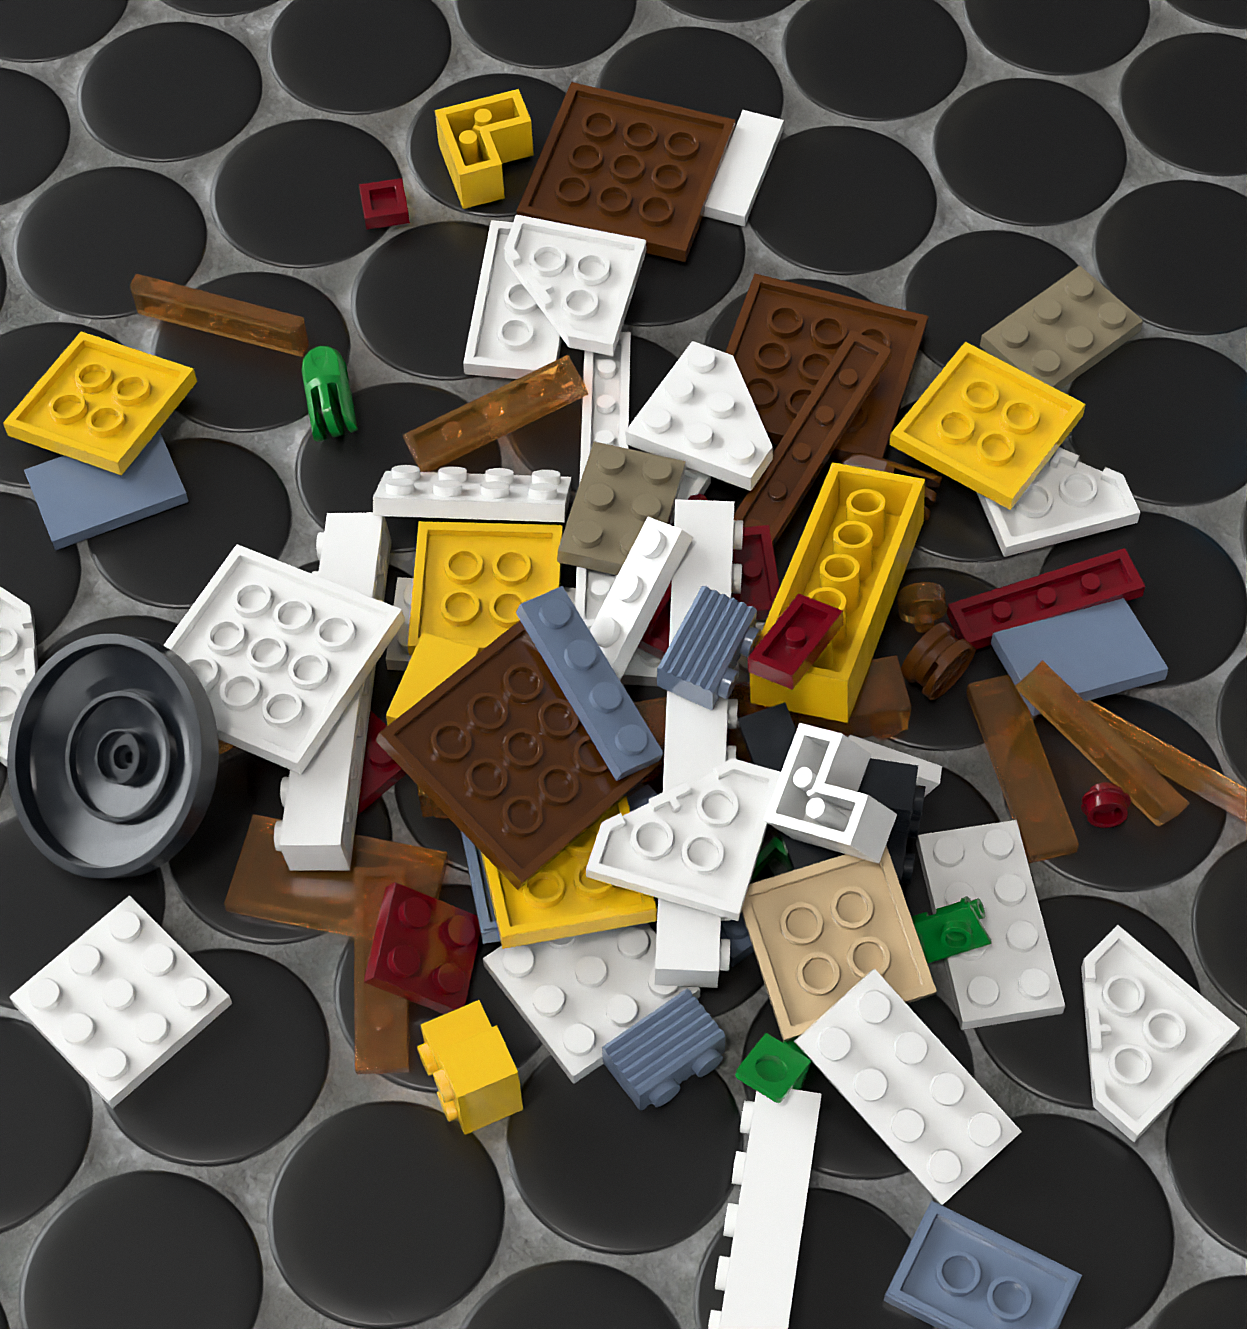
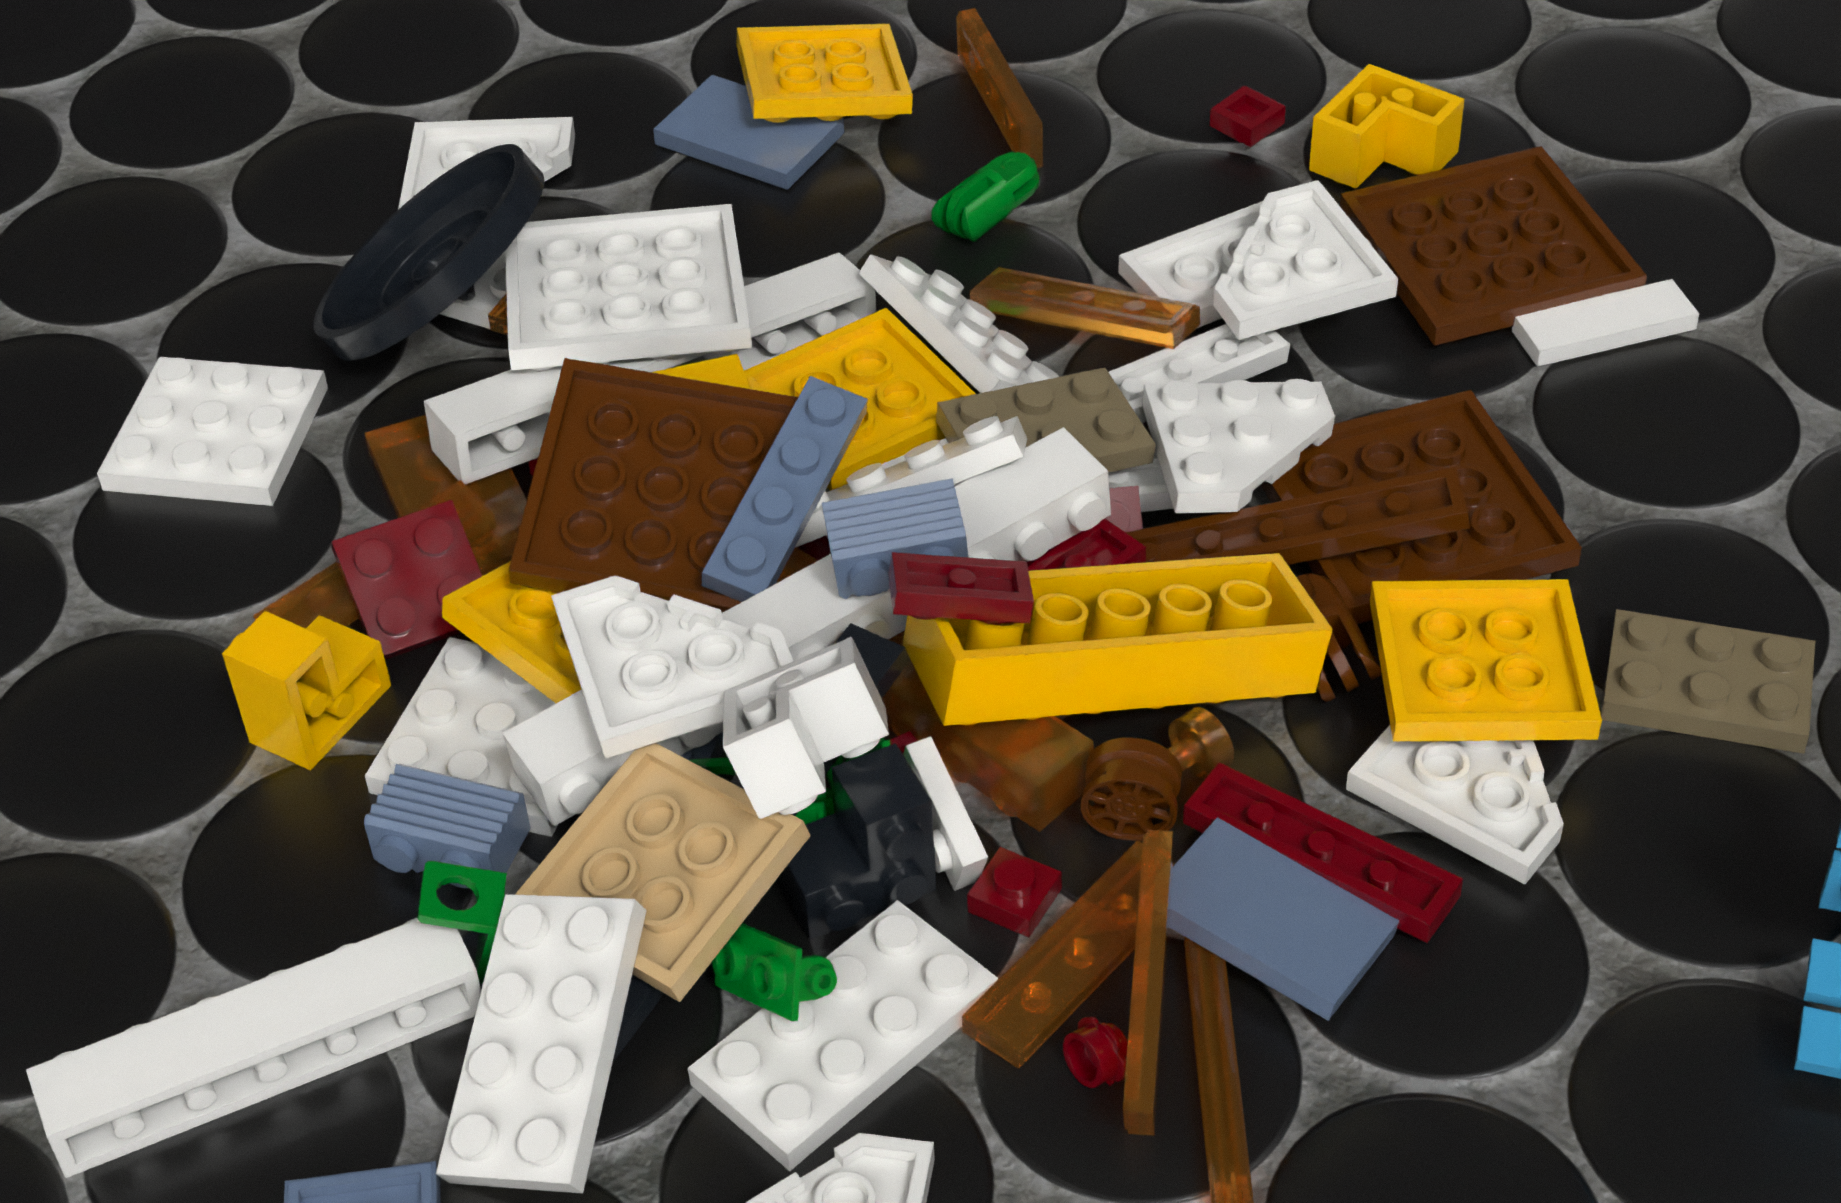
camera: 55 degrees right, 15 degrees down
(959, 770) = (1014, 892): none -> dark red plate

